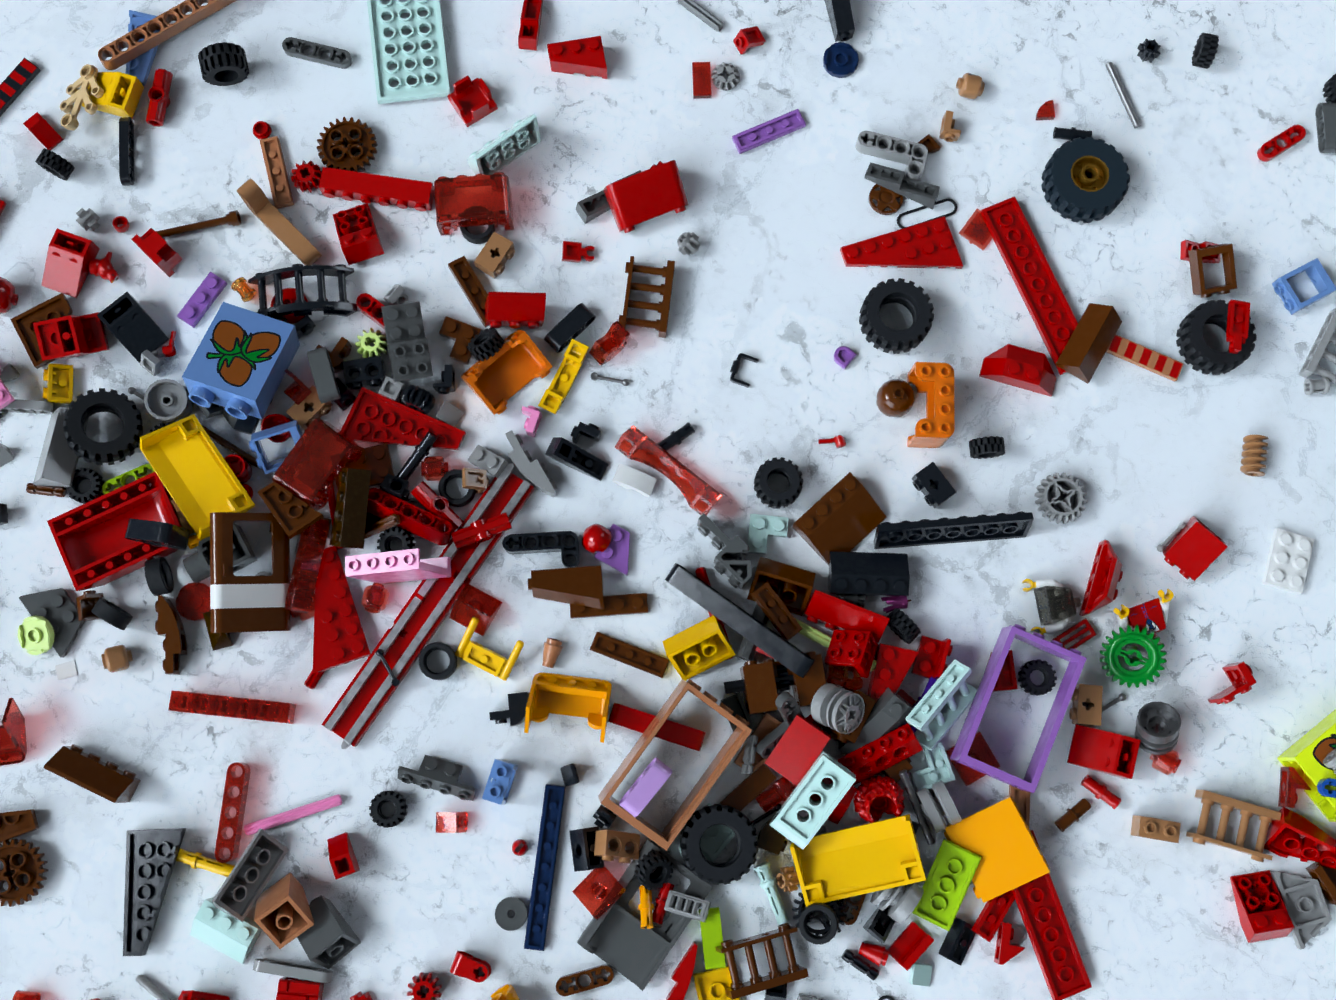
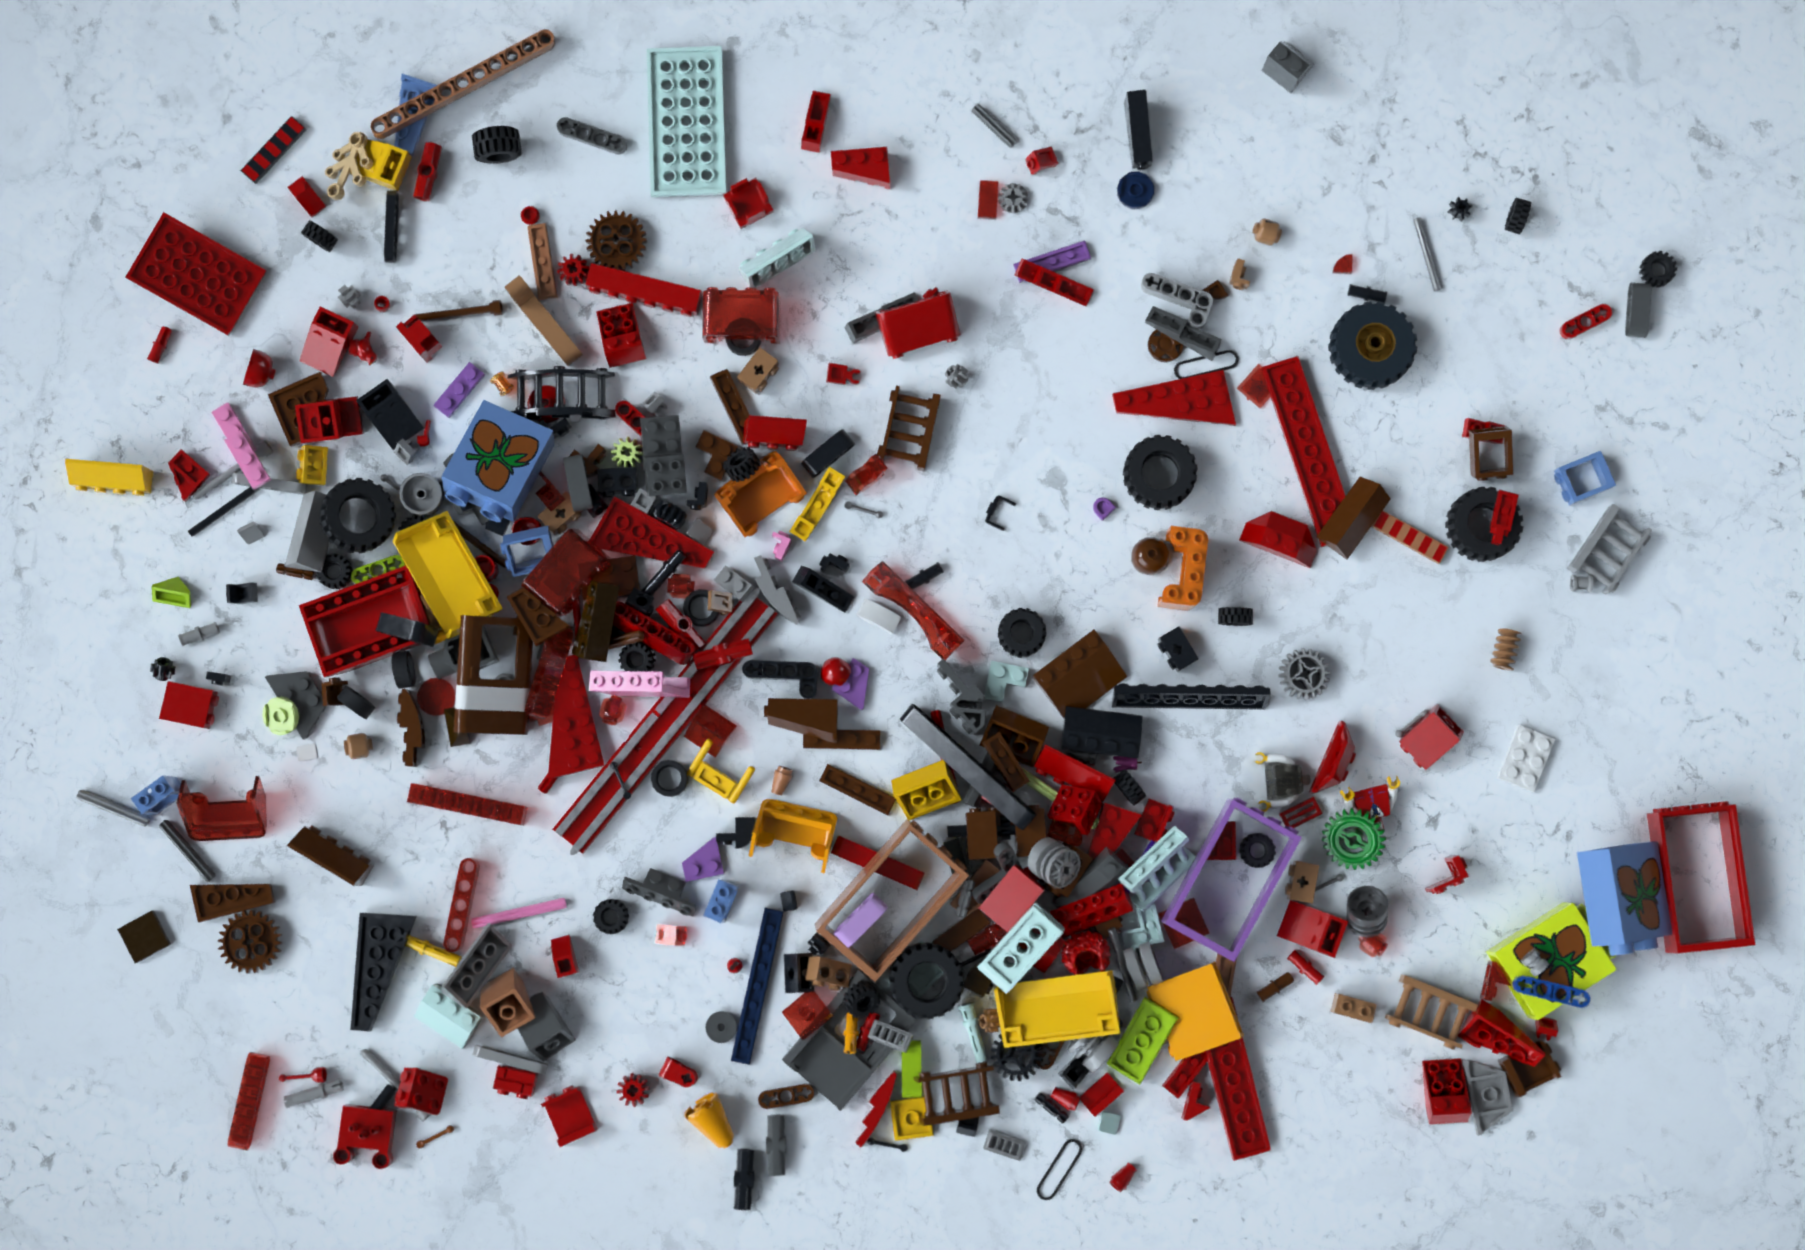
camera: 10 degrees right, 5 degrees up
(479, 744) = (704, 862): none -> medium lavender wing
(773, 148) = (1053, 282): none -> red slope
(803, 923) = (999, 1060): black tyre -> none
(838, 440) = (1088, 594): red hand -> none
(957, 941) = (1148, 1095): black slope -> none

